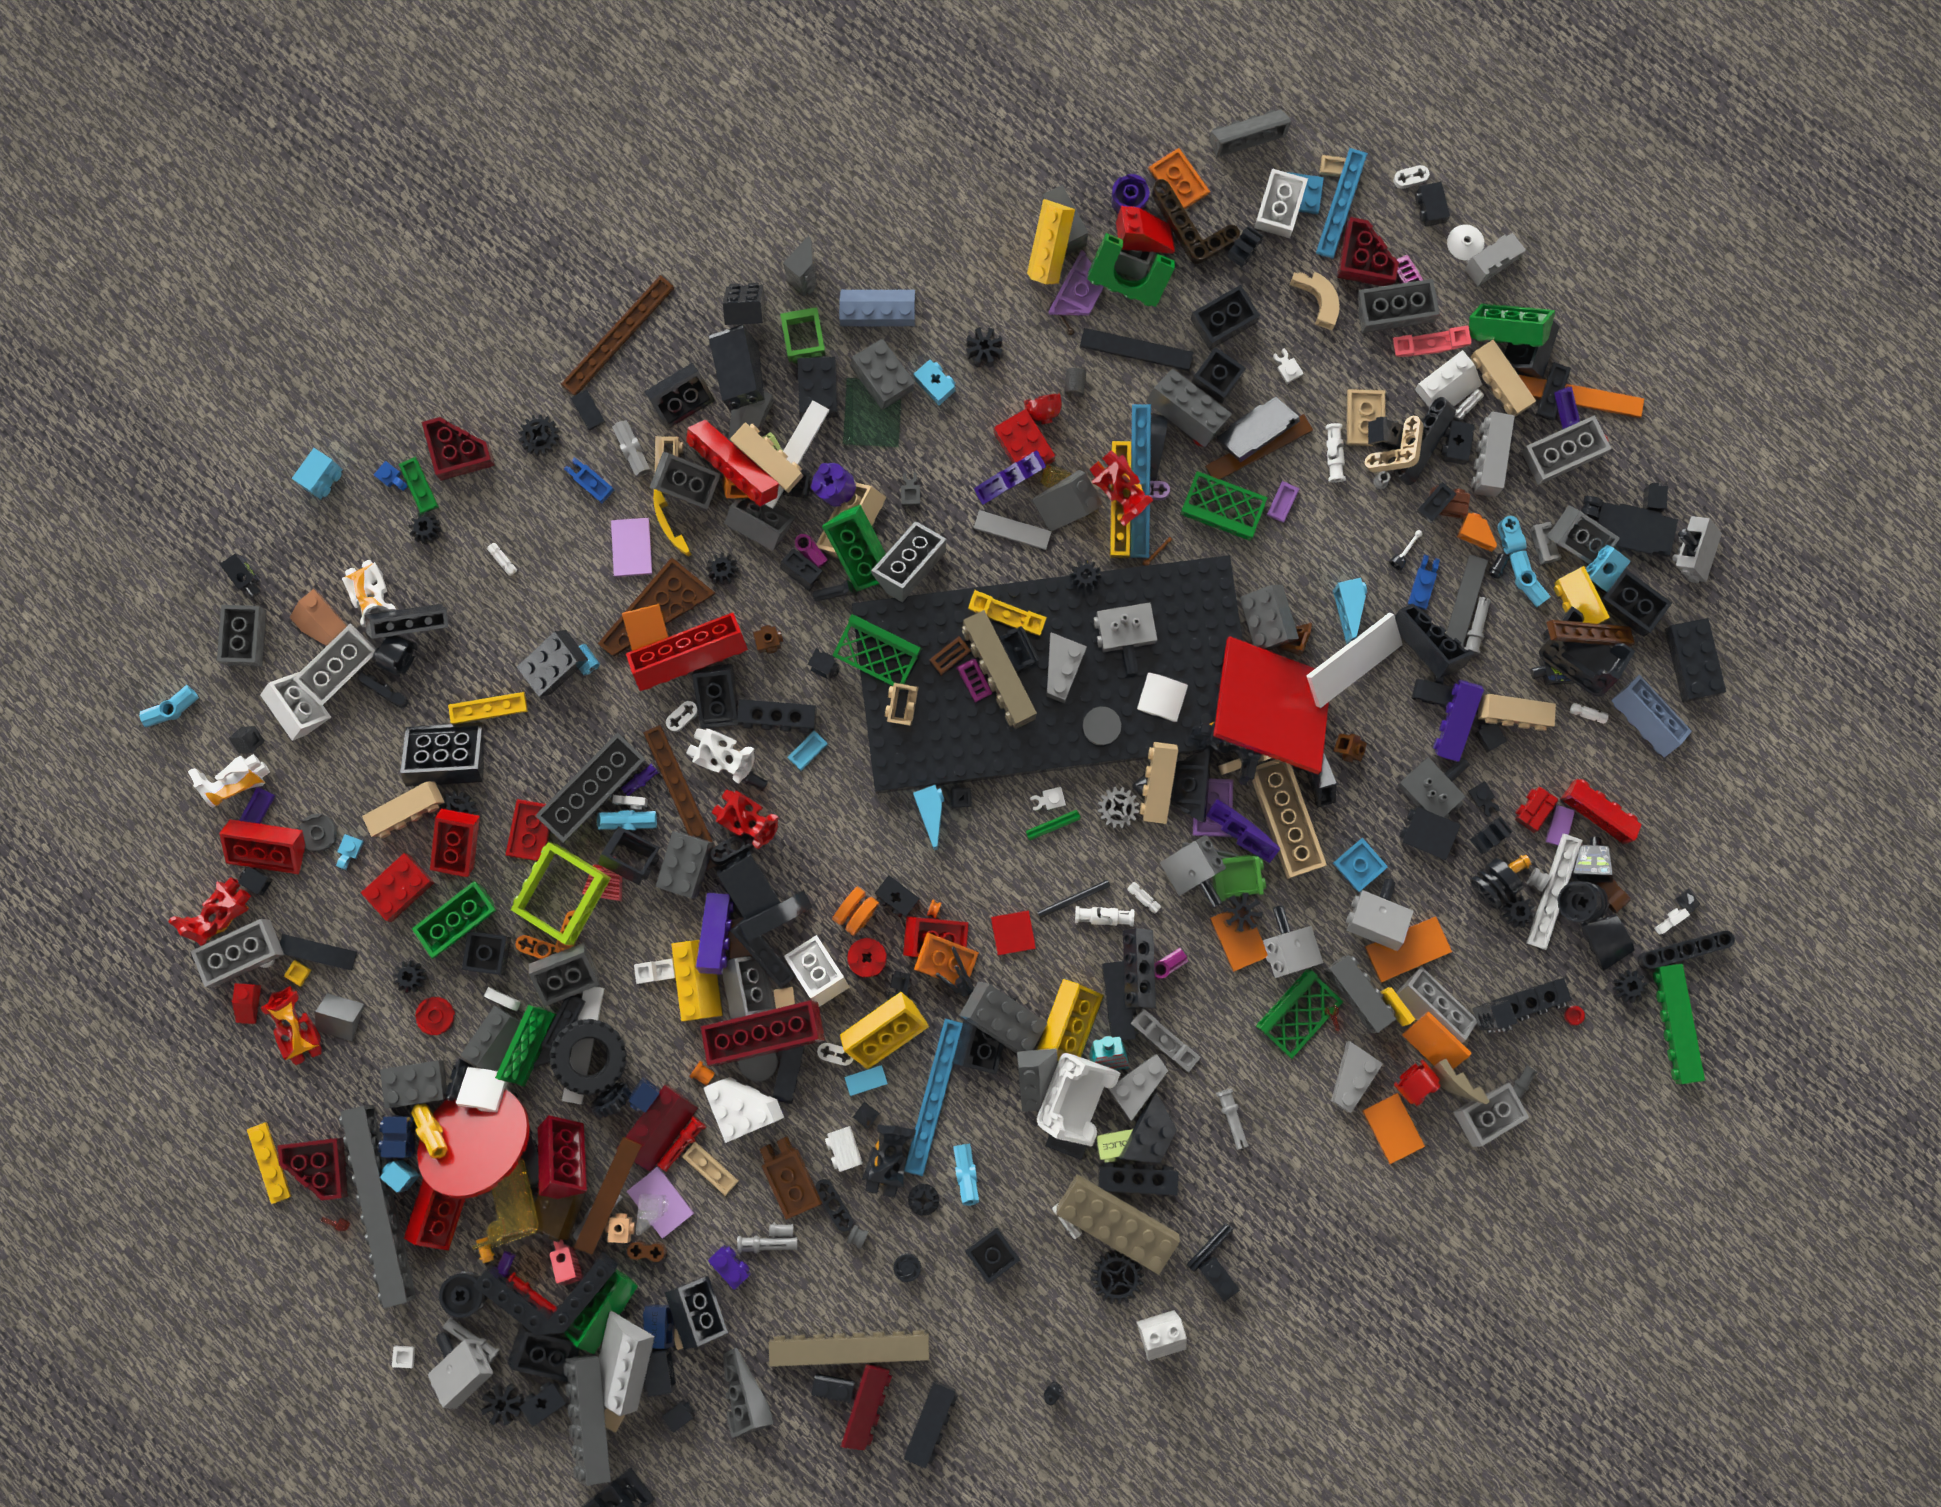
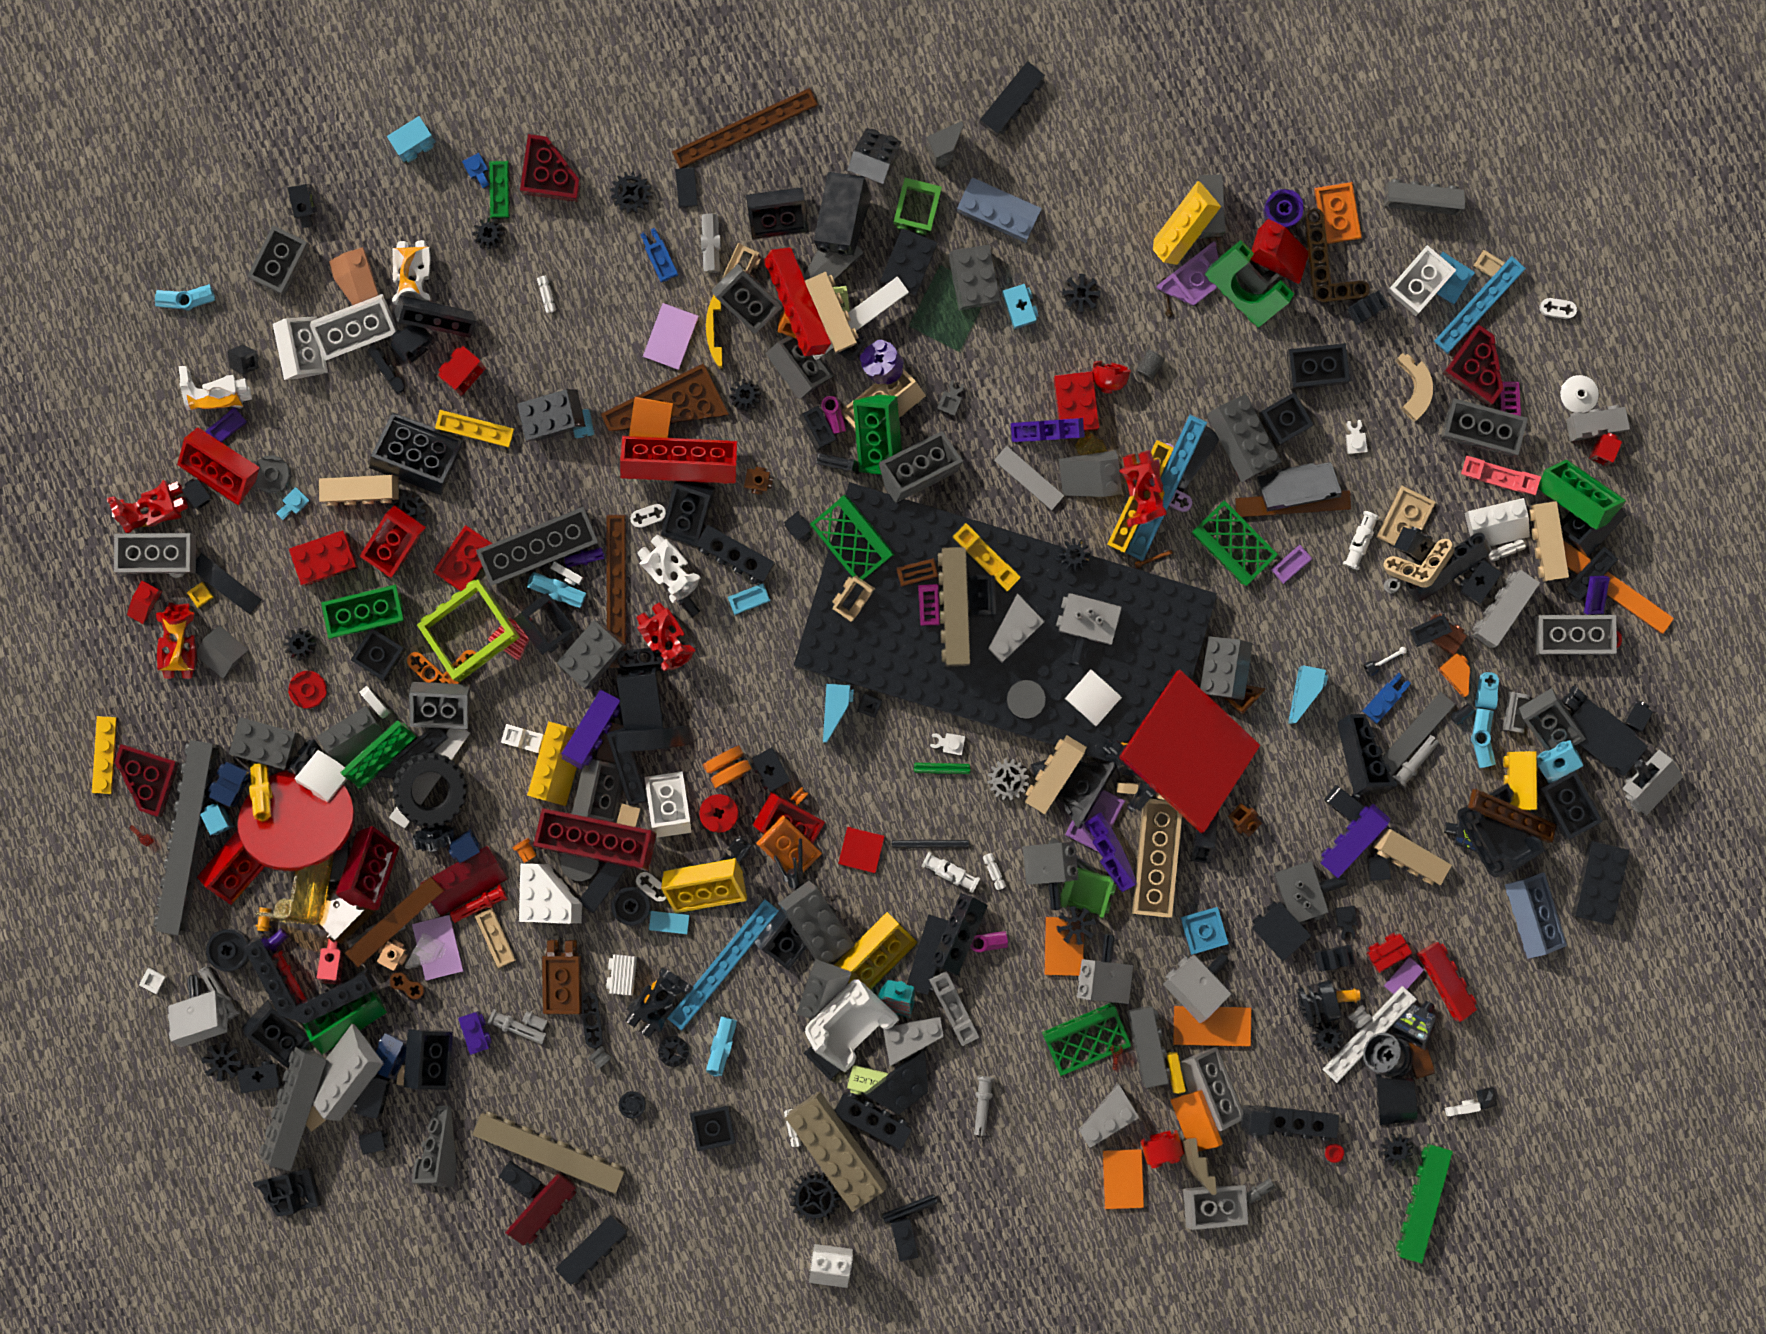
camera: 20 degrees right, 5 degrees up
(451, 658) = (461, 370): none -> red brick
(824, 1069) = (640, 912): none -> black brick
(845, 206) = (1012, 98): none -> black brick
(866, 1115) = (655, 953): black tile -> none
(1053, 1392) = (712, 1271): black hinge -> none
(1136, 349) = (1222, 358): black tile -> none
(1354, 660) = (1285, 742): white tile -> none
(1432, 204) = (1564, 344): black brick -> none
(1513, 276) = (1605, 449): none -> red brick
(1589, 713) = (1480, 887): white axle -> none
(1694, 946) = (1471, 1145): black beam -> none

